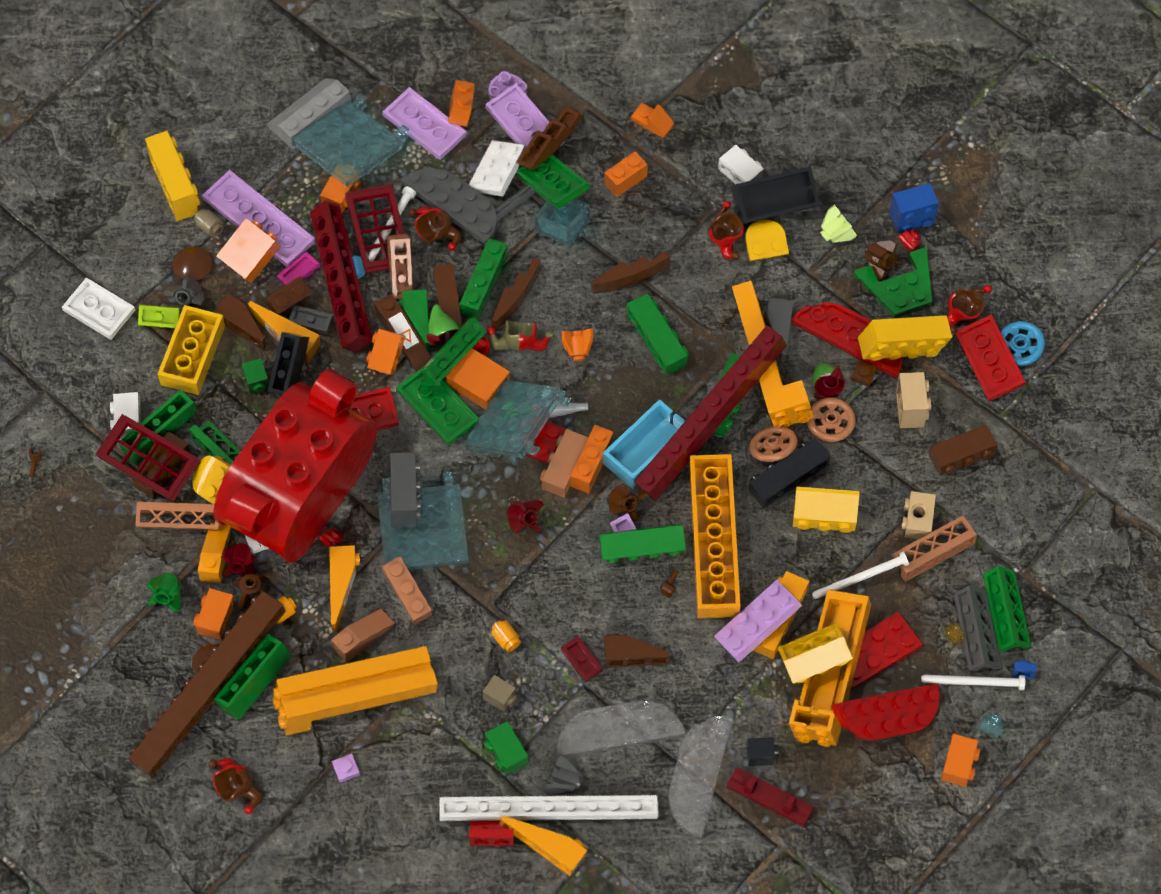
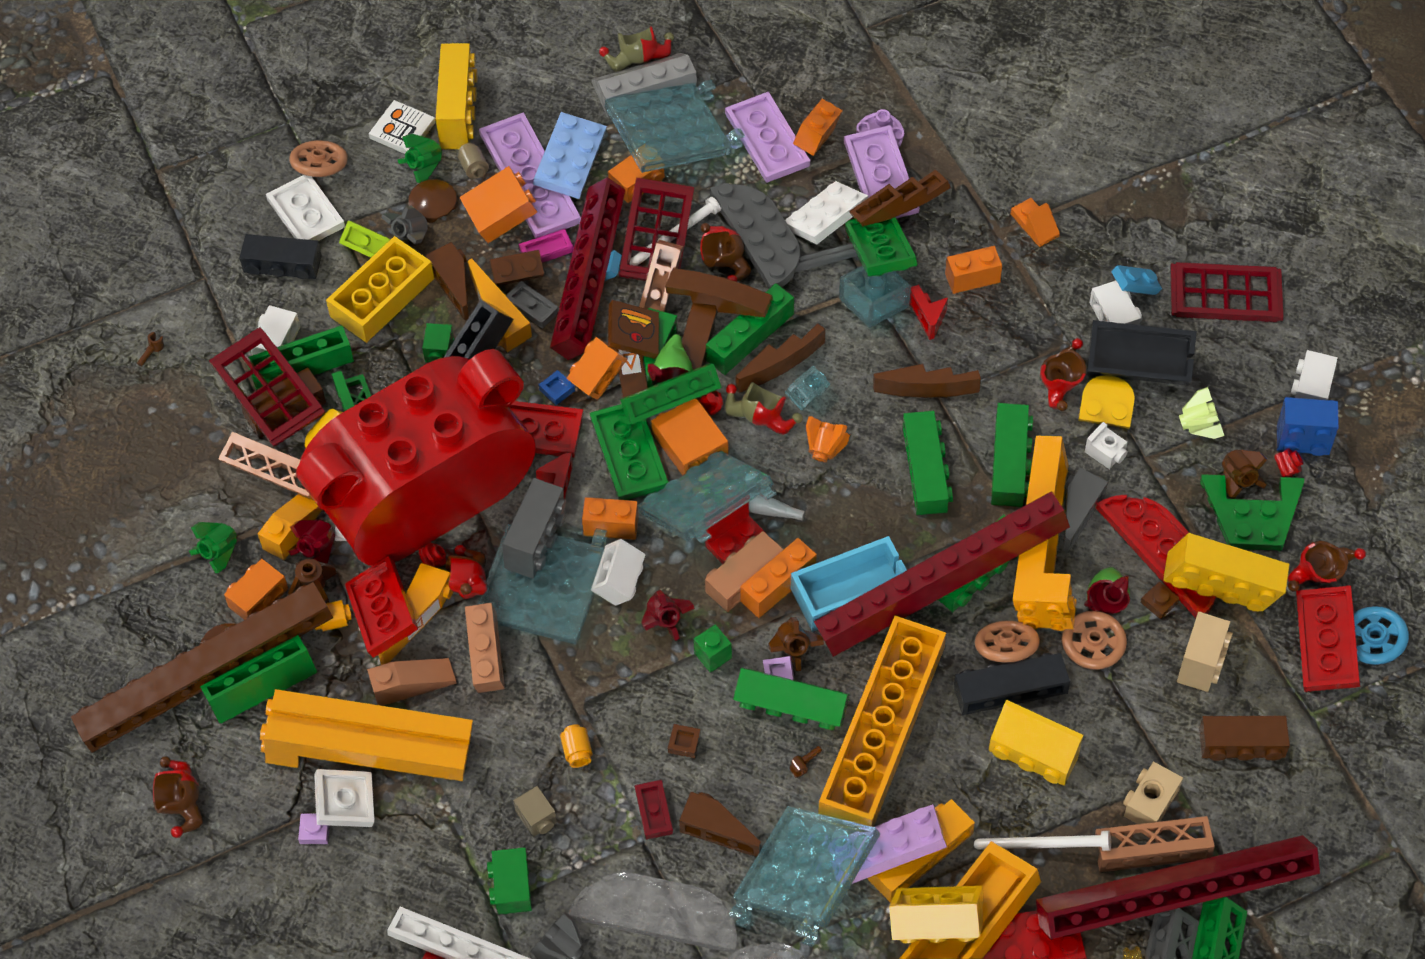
camera: 25 degrees right, 5 degrees down
(87, 264) = (318, 159): none -> nougat plate
(99, 352) = (280, 256): none -> black brick
(139, 215) = (398, 122): none -> white tile
(168, 233) = (422, 155): none -> green brick
(282, 191) = (569, 155): none -> light blue plate
(292, 86) = (637, 49): none -> olive piece
(317, 589) = (381, 606): none -> red plate
(358, 737) = (344, 798): none -> white plate
(362, 376) = (556, 387): none -> blue plate
(367, 540) = (467, 572): none -> red piece
(393, 442) = (557, 472): none -> red slope
(402, 312) = (633, 329): none -> reddish brown tile
(451, 458) = (614, 516): none -> orange brick
(452, 260) = (714, 290): none -> reddish brown slope
(475, 498) = (618, 572): none -> white brick
(546, 309) = (807, 388): none -> clear light blue brick
(569, 528) = (712, 648): none -> green brick
(579, 602) = (684, 741): none -> reddish brown plate
(607, 221) = (929, 314): none -> red slope
(709, 659) = (804, 870): none -> clear light blue plate
(714, 305) = (1010, 455): none -> green brick
(747, 140) = (1136, 280): none -> dark azure plate
(778, 136) = (1273, 292): none -> dark red piece
(779, 274) = (1106, 446): none -> white brick
(903, 170) = (1315, 376): none -> white brick
(963, 572) = (1177, 886): none -> dark red brick

